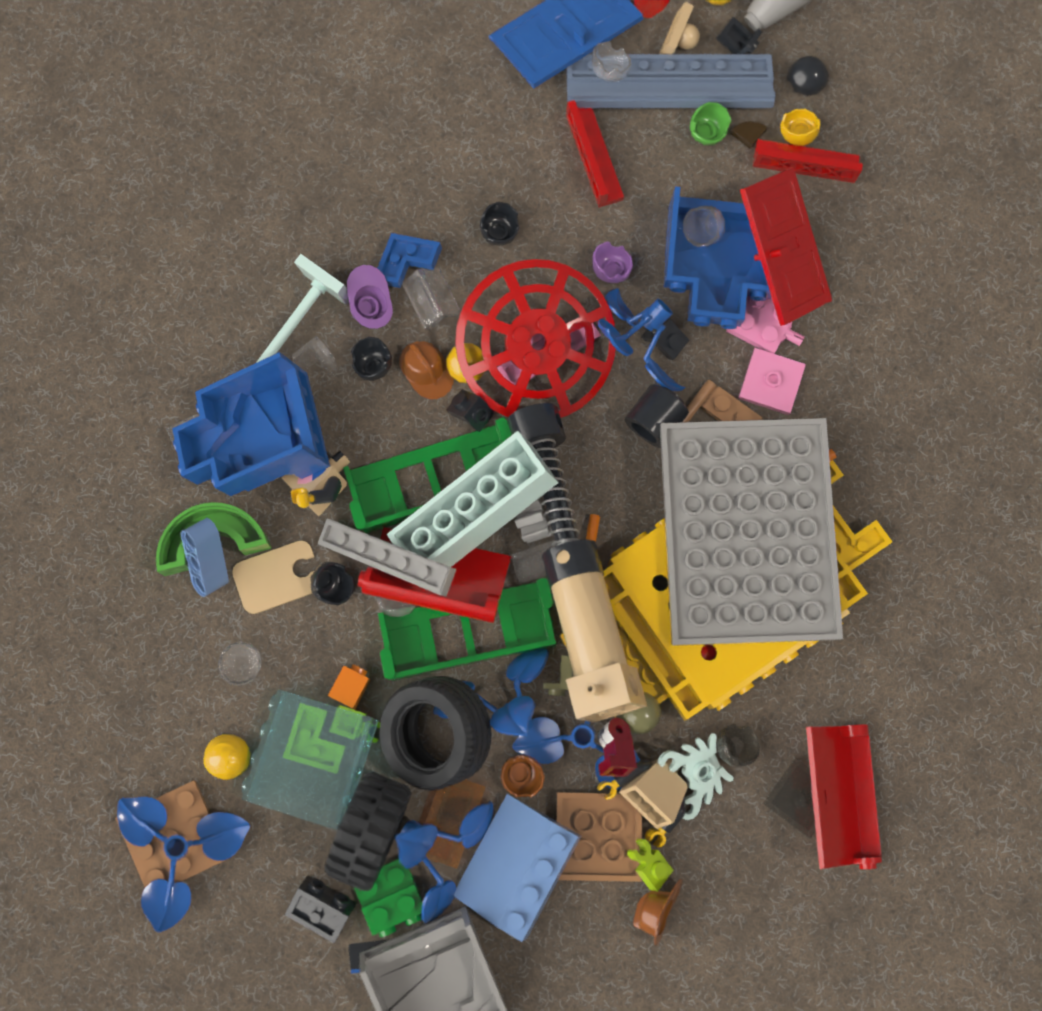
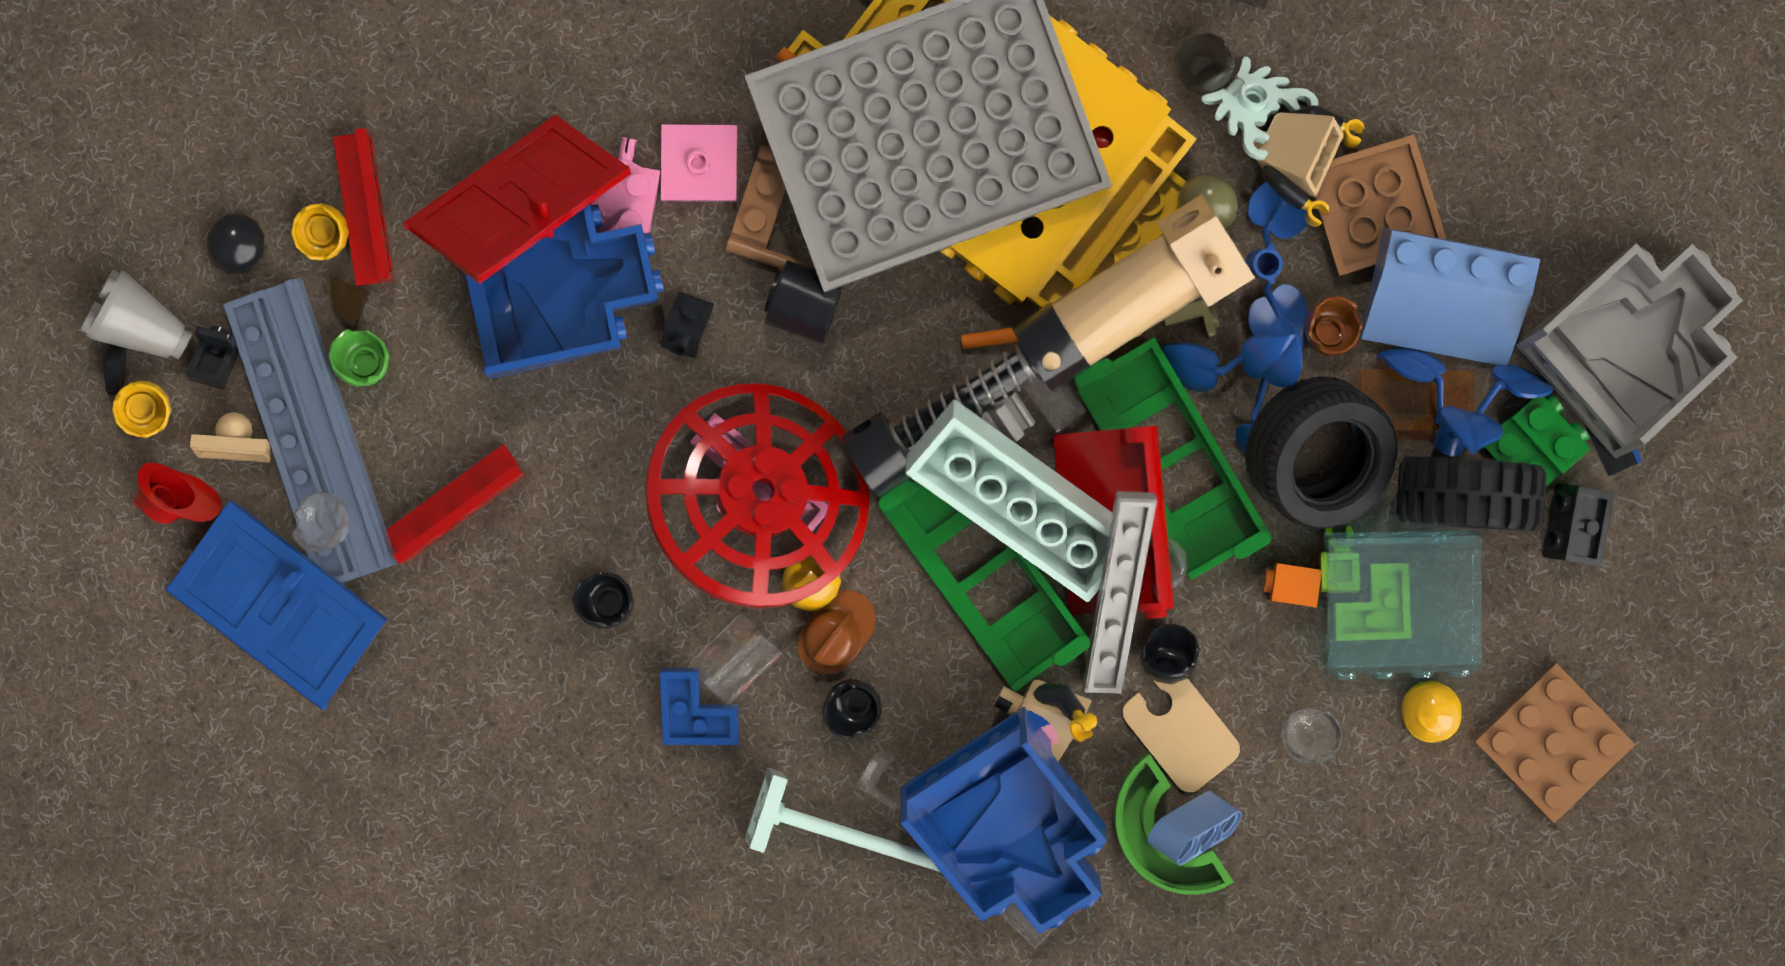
camera: 105 degrees left, 10 degrees up
(141, 820) = (1533, 681): blue plant -> none
(369, 297) = (769, 739): medium lavender piece -> none
(470, 409) = (875, 553): black bracket -> none
(611, 263) = (607, 429): medium lavender hair -> none
(617, 748) = (1264, 215): dark red leg -> none
(650, 318) = (682, 348): blue plant -> none
(652, 865) = (1390, 126): lime plate -> none
(654, 910) = (1445, 107): dark orange piece -> none
(704, 226) = (519, 319): clear hair -> none

